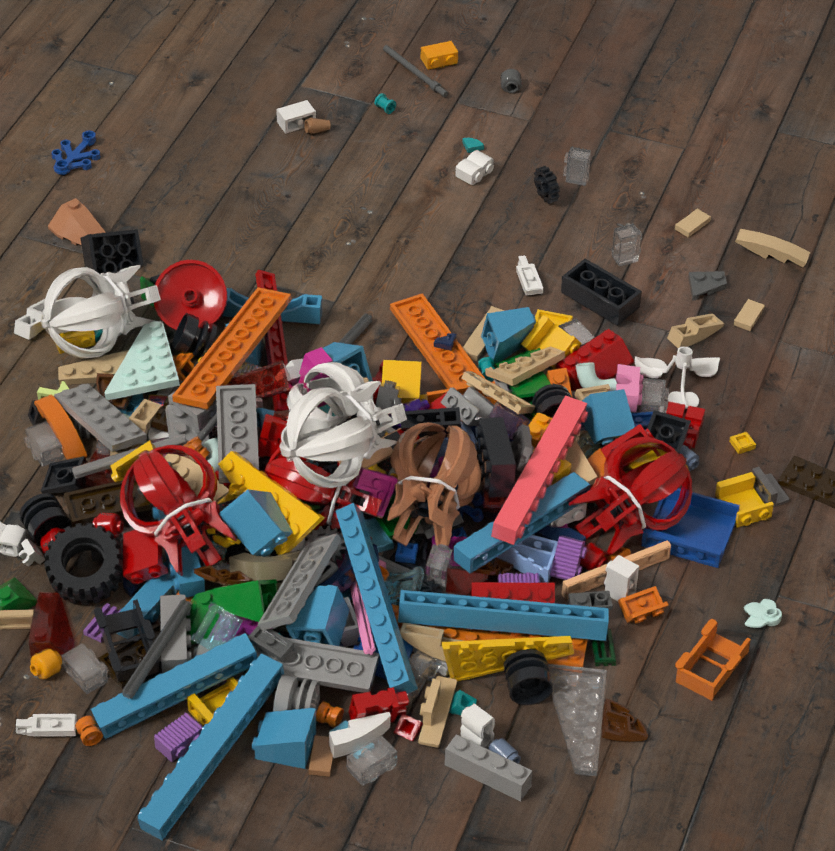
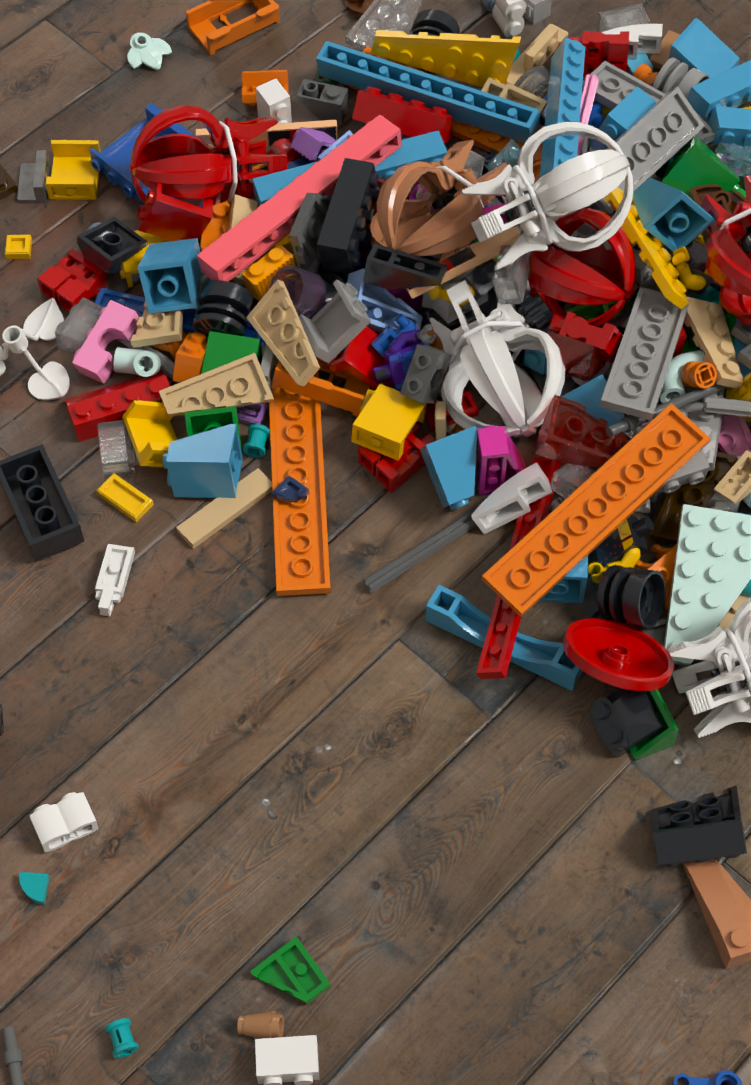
camera: 155 degrees left, 15 degrees up
(311, 147) = (293, 972): none -> green wing

